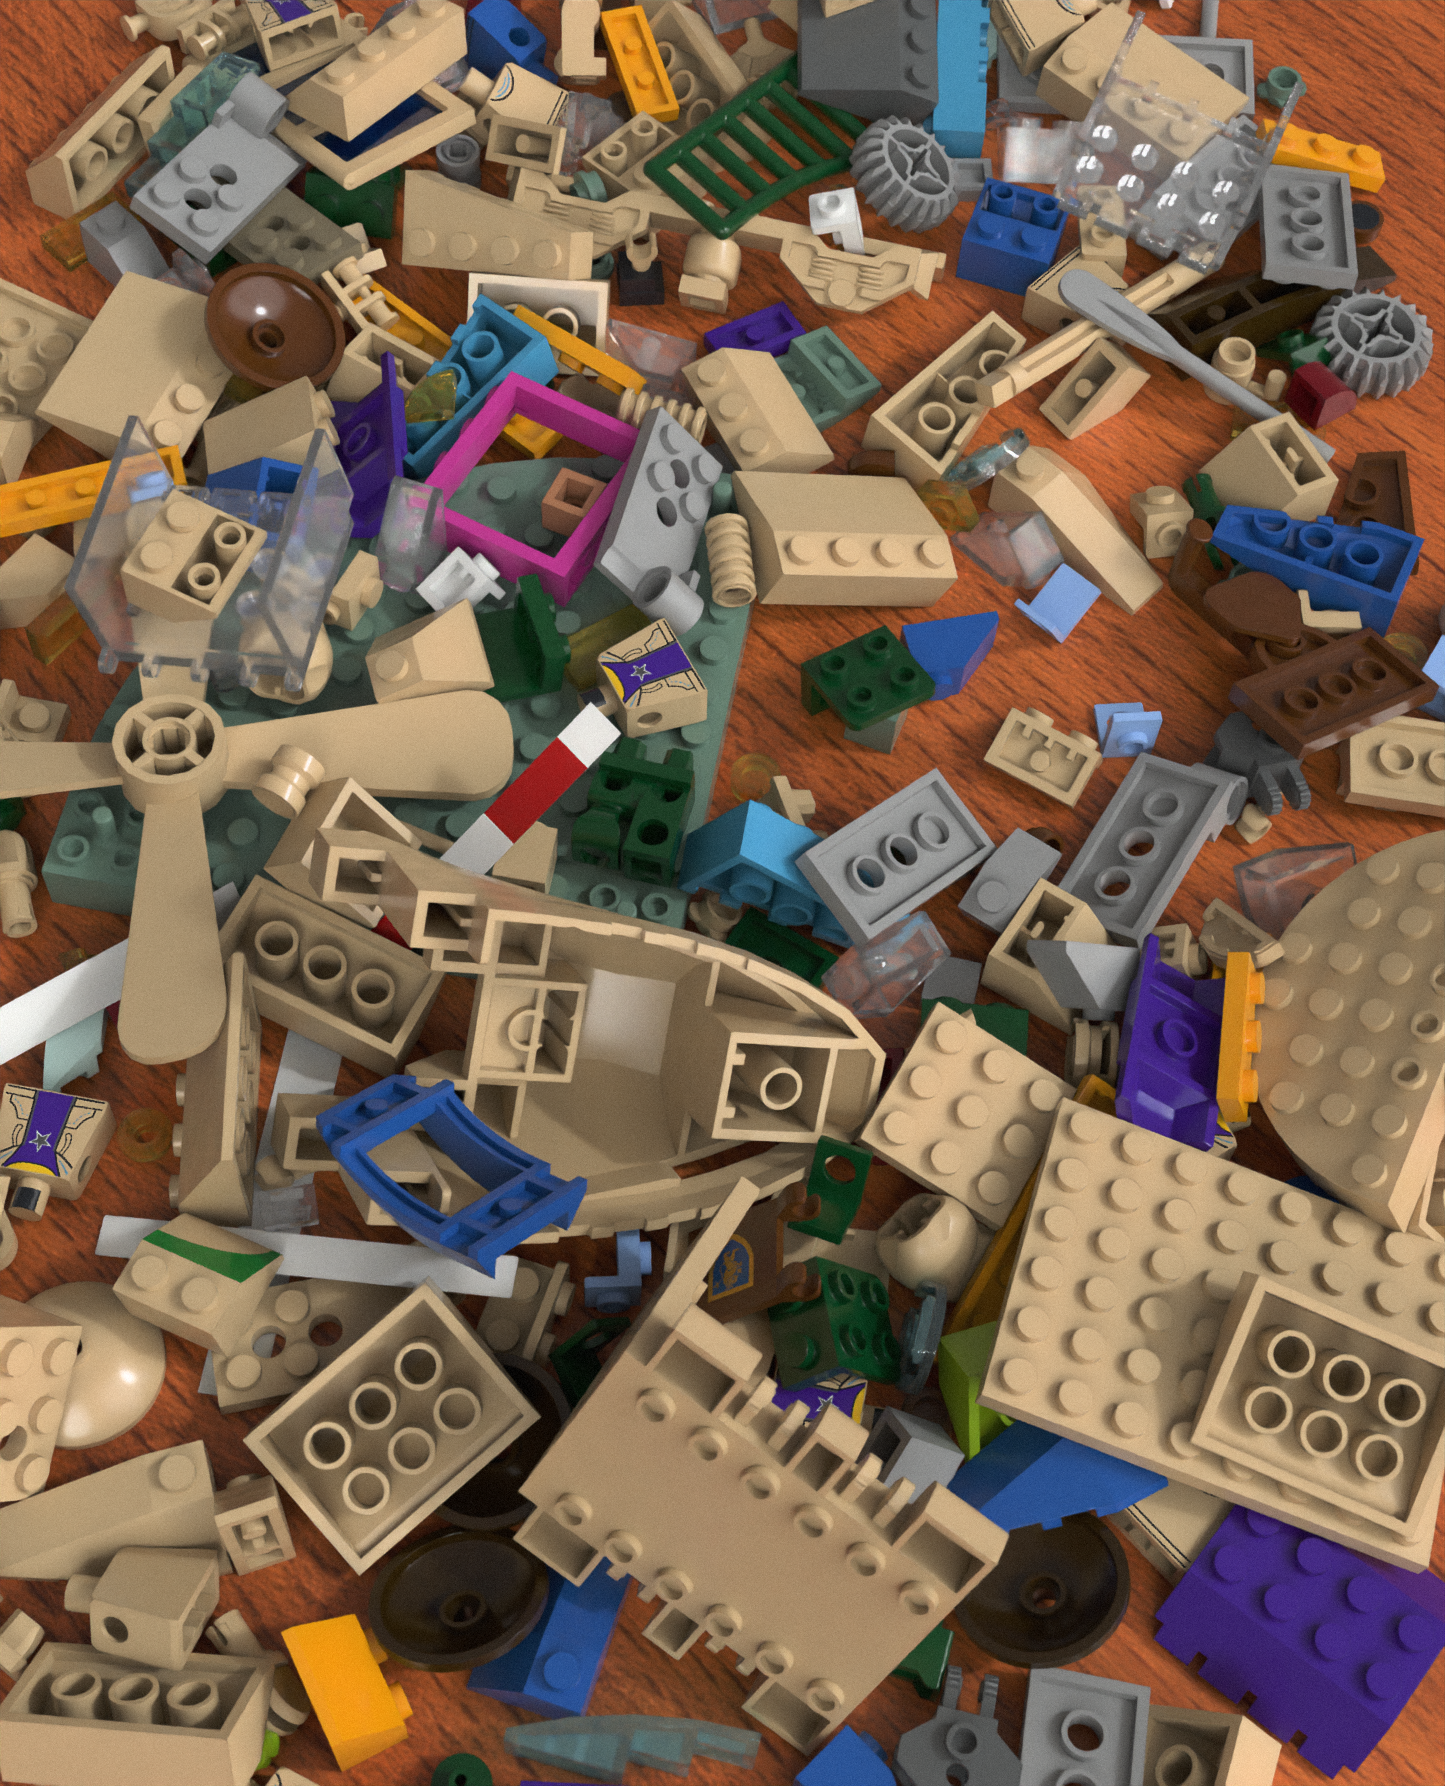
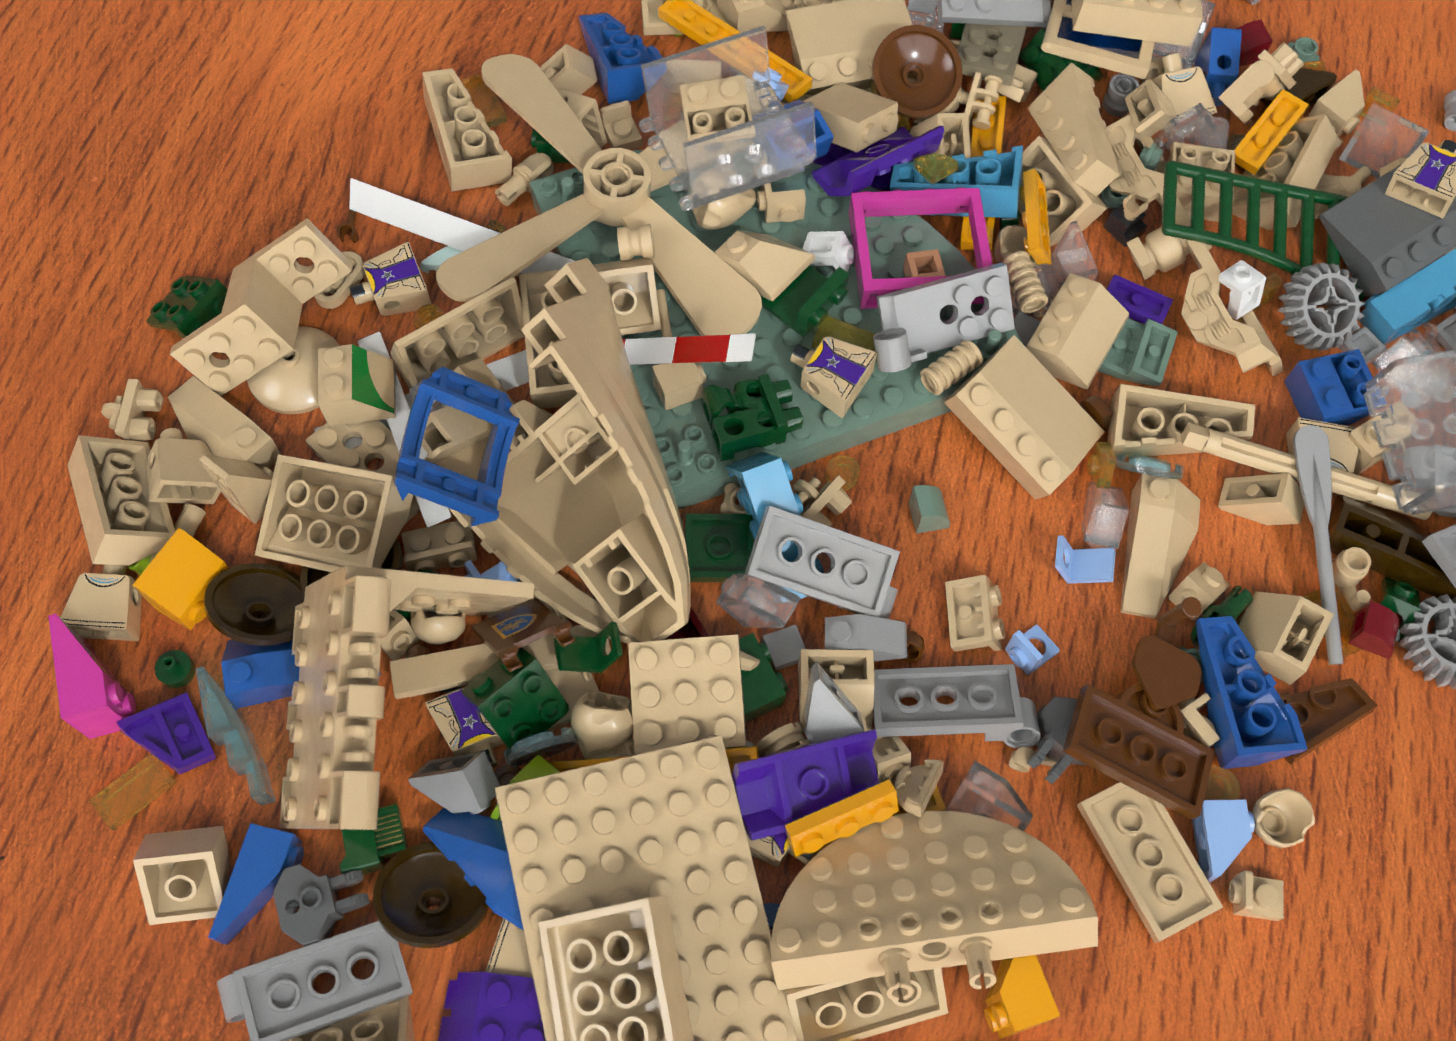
camera: 60 degrees right, 5 degrees up
(411, 534) = (832, 206): clear slope -> none
(865, 680) = (939, 486): dark green bracket -> none
(951, 648) = (1001, 522): blue slope -> none

